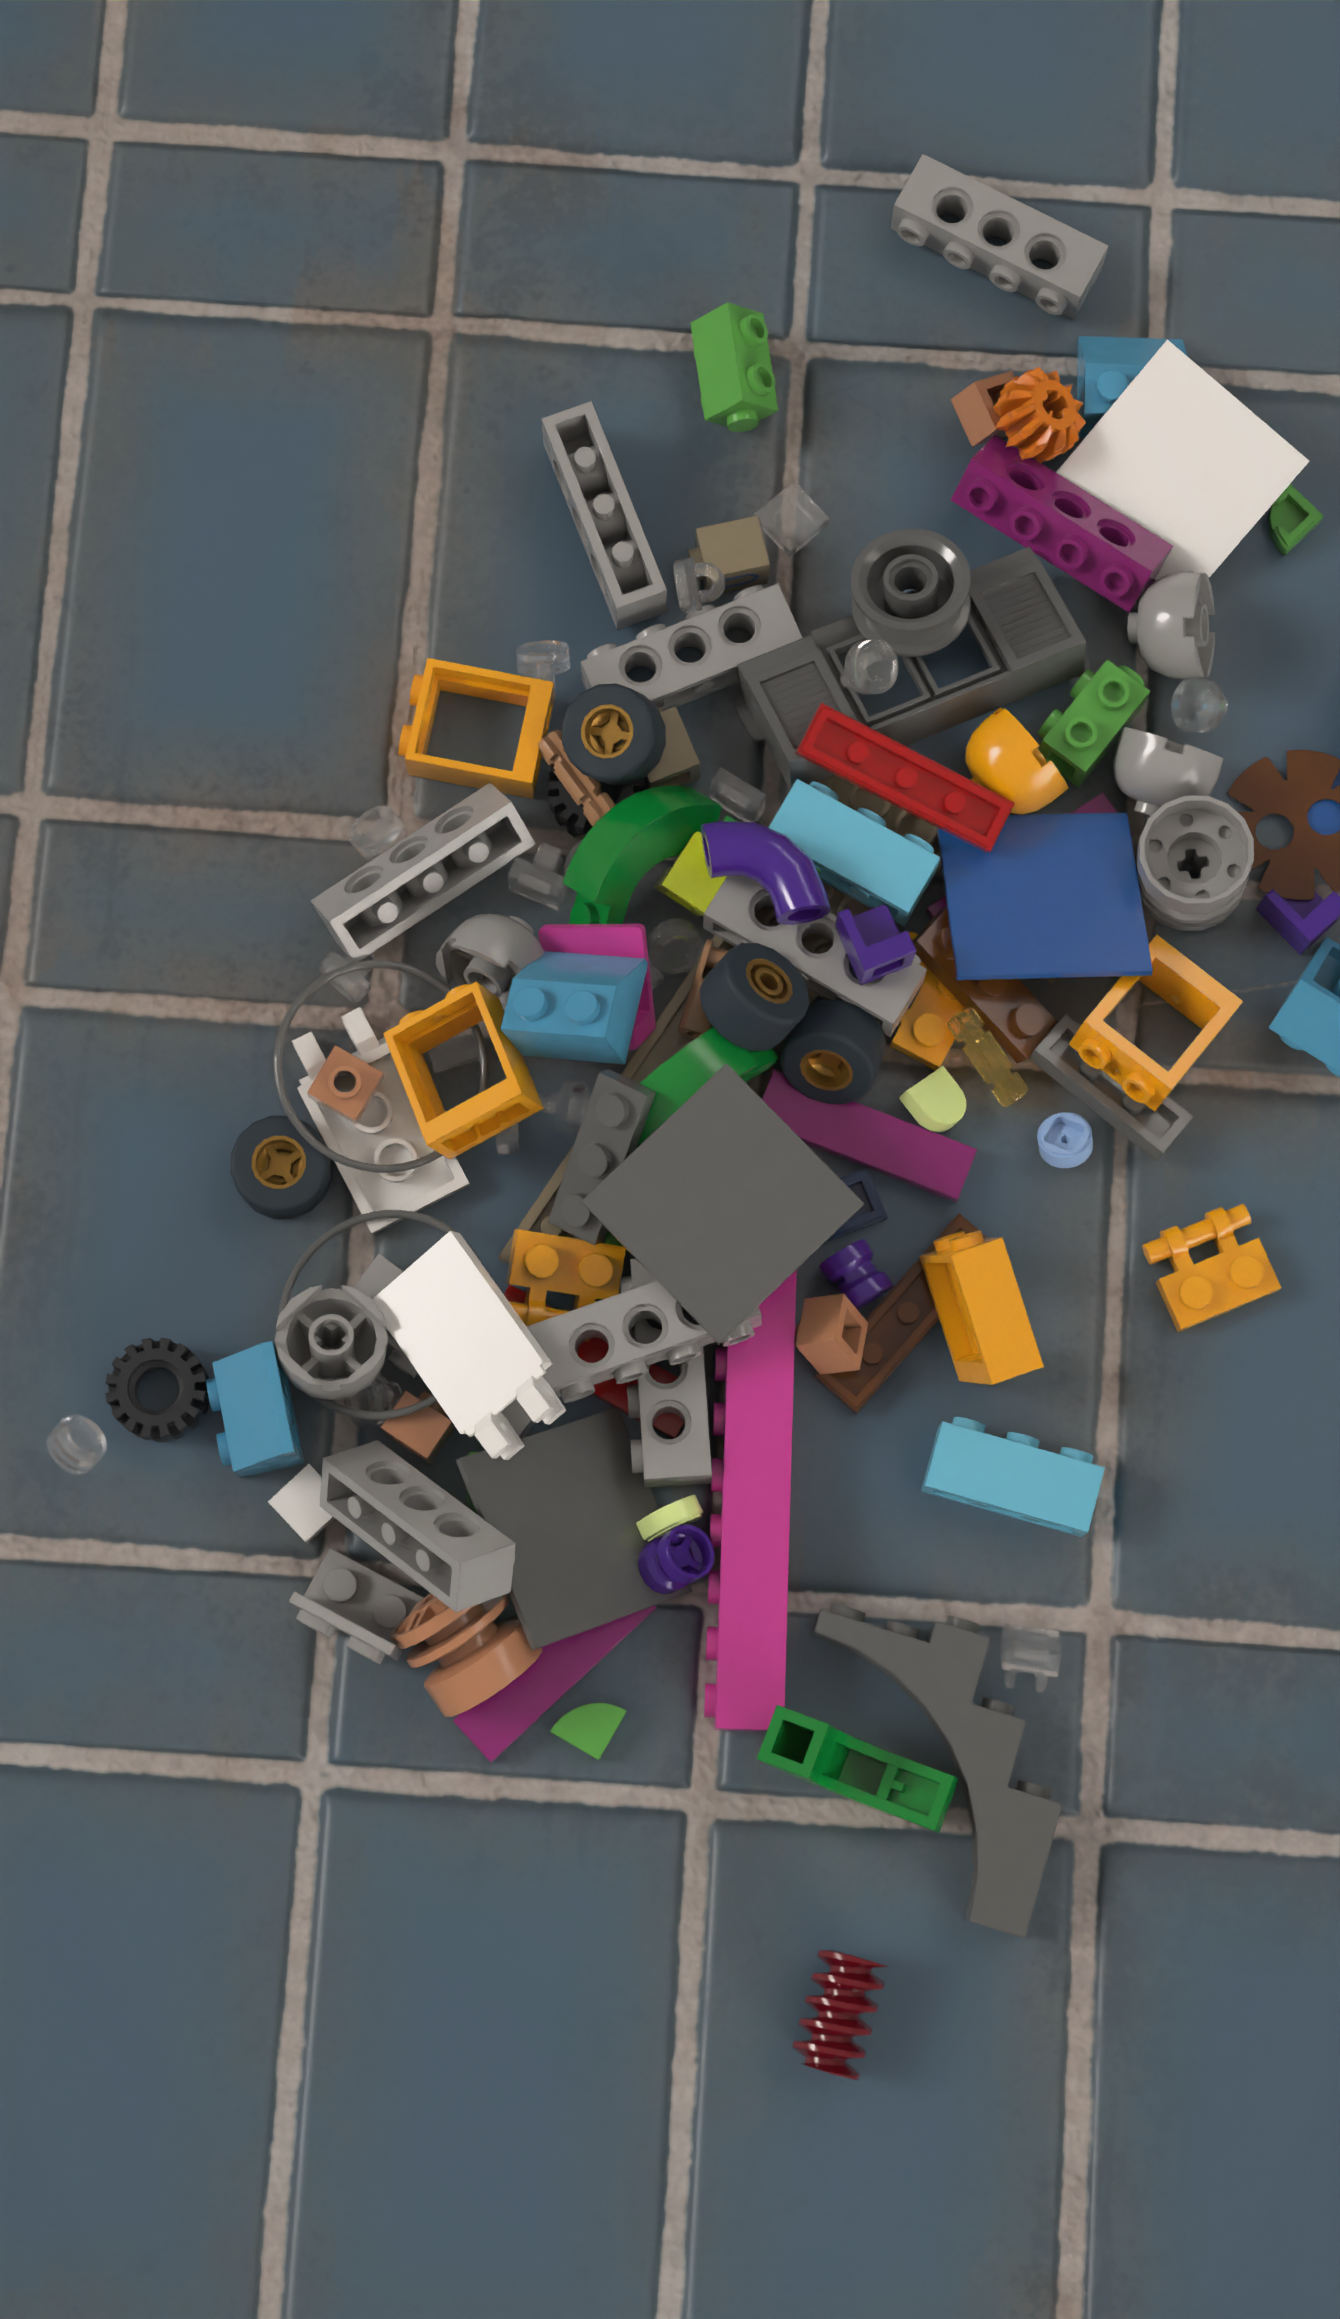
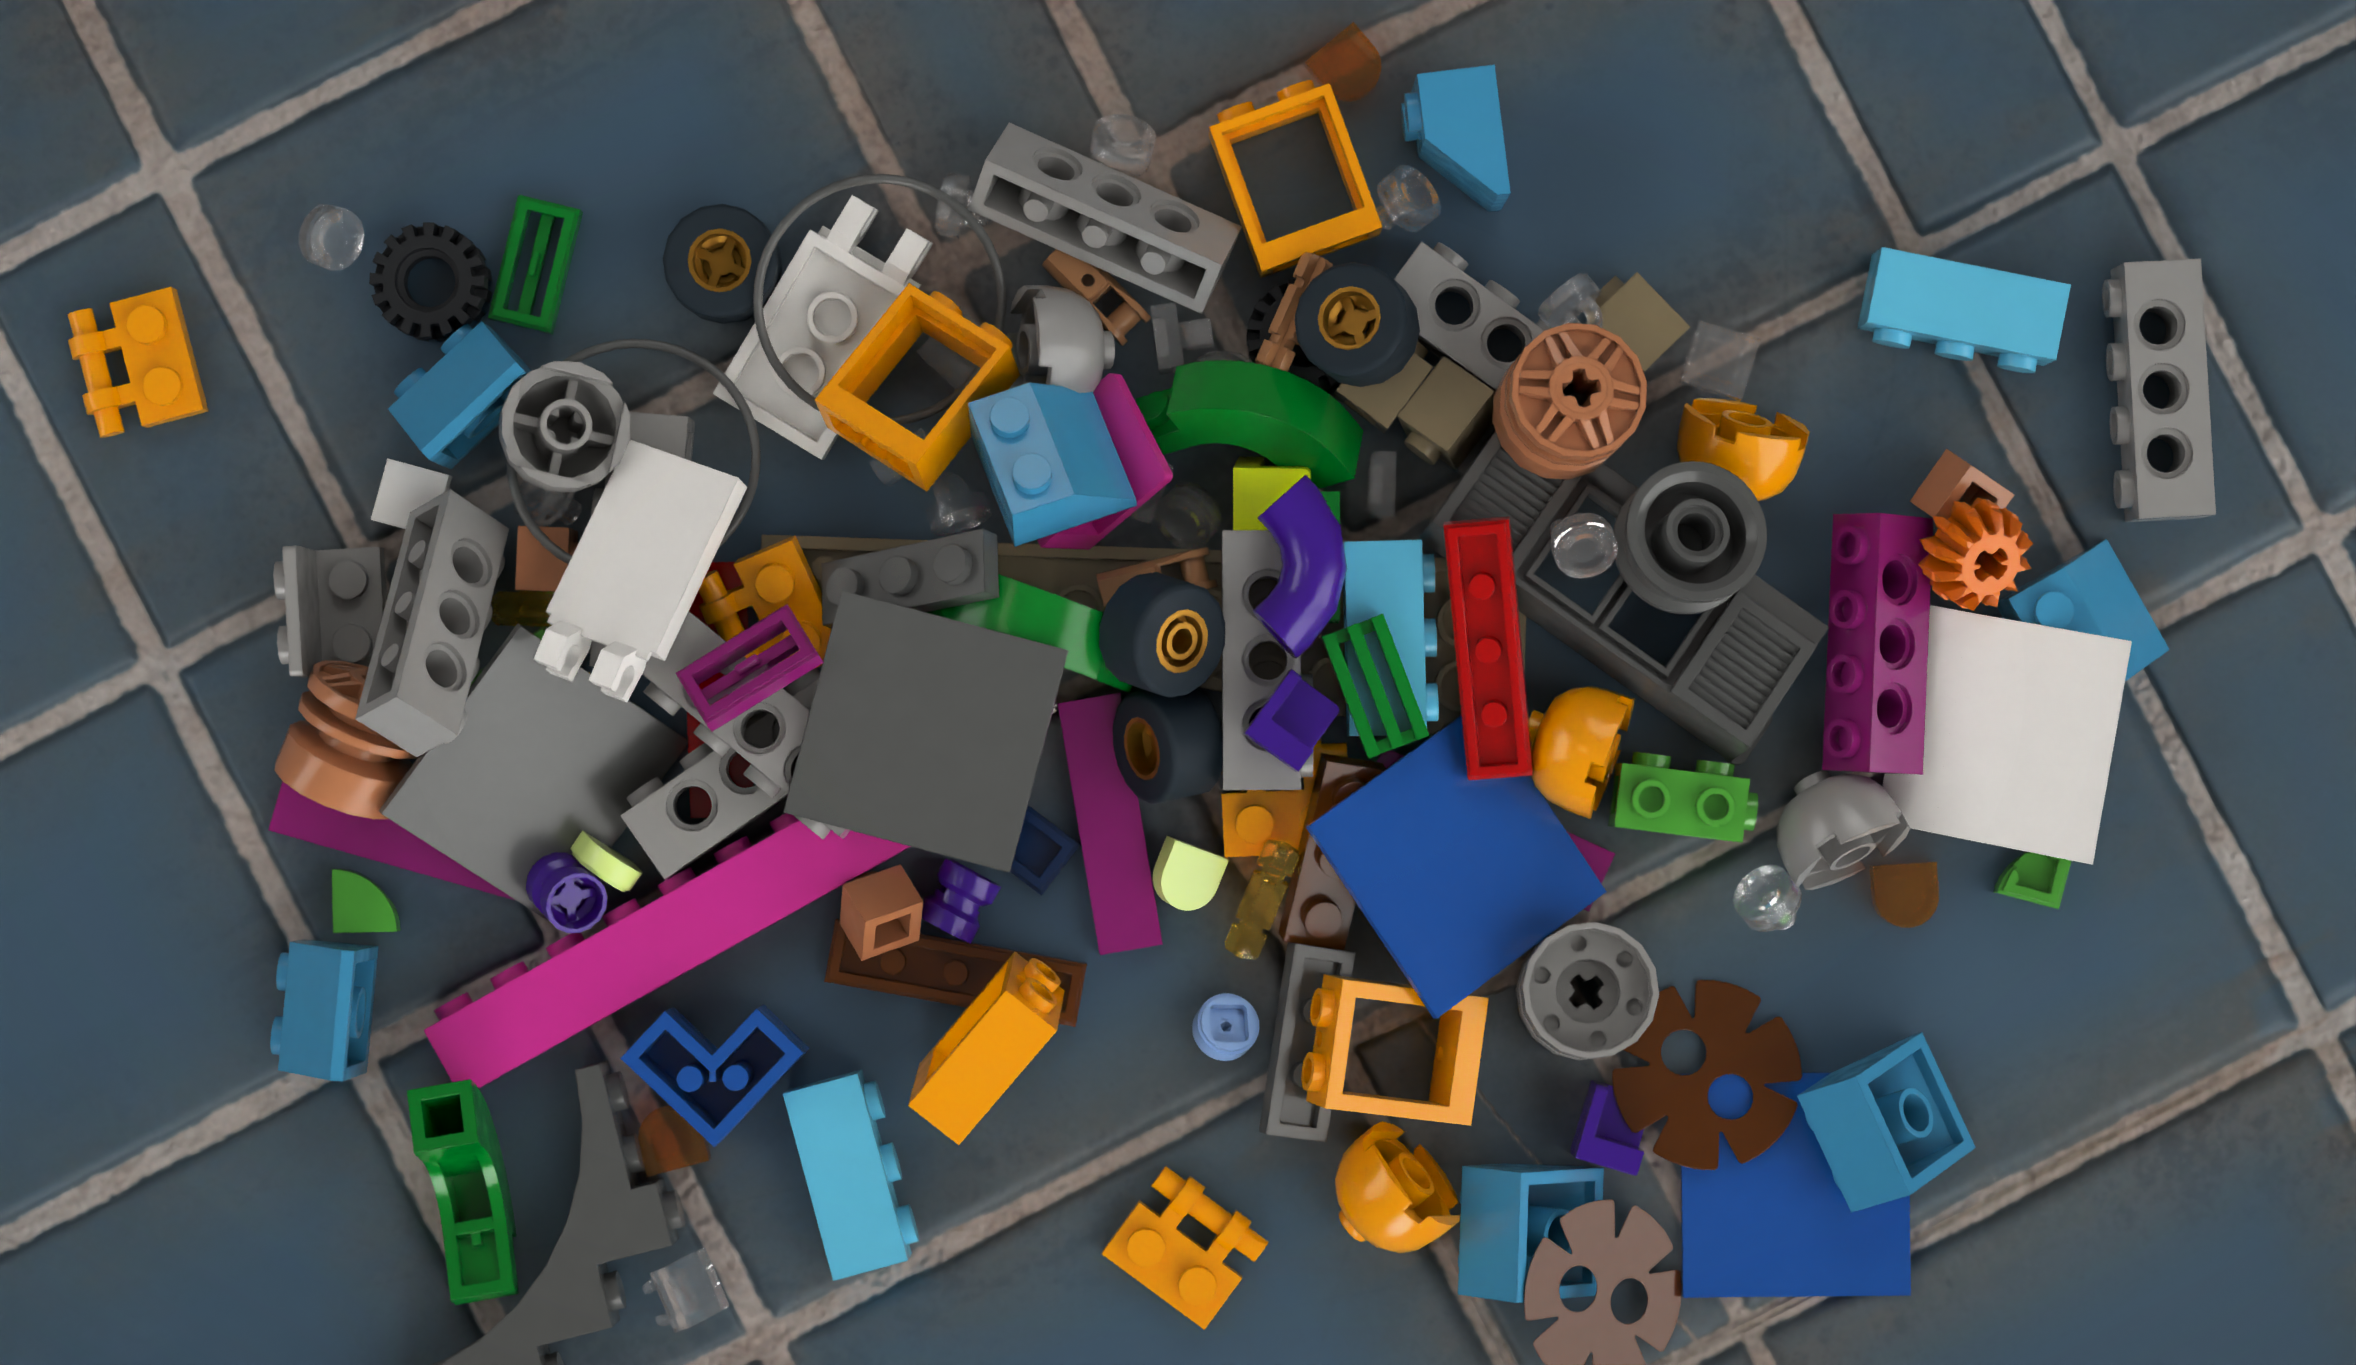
camera: 60 degrees right, 10 degrees up
(79, 1631) = (156, 356): none -> light orange plate
(226, 1341) = (549, 212): none -> green tile
(348, 1104) = (856, 287): nougat plate -> none
(417, 642) = (1348, 64): none -> clear orange tile
(443, 1460) = (521, 607): none -> clear yellow axle
(451, 915) = (1093, 286): none -> medium nougat bar
(522, 588) = (1460, 131): none -> dark azure slope
(597, 1302) = (759, 687): none -> magenta tile
(604, 515) = (1596, 167): light grey brick -> none
(652, 1798) = (325, 1009): none -> dark azure slope
(715, 719) = (1447, 415): none -> dark tan brick
(734, 367) = (1842, 204): bright green brick -> none
(762, 615) = (1550, 430): none -> nougat wheel
(839, 2013) = (229, 1312): dark red piece -> none
(858, 333) = (1963, 309): none -> medium azure brick
(873, 515) = (1743, 443): none -> light orange cylinder
(889, 850) = (1394, 736): none -> green tile
(889, 1530) = (713, 1084): none -> blue brick
(908, 1598) = (670, 1142): none -> clear orange tile
(1161, 770) = (1669, 904): light grey cylinder -> none
(1249, 613) = (1905, 892): none -> clear orange tile
(1260, 1090) = (1393, 1195): none -> light orange cylinder

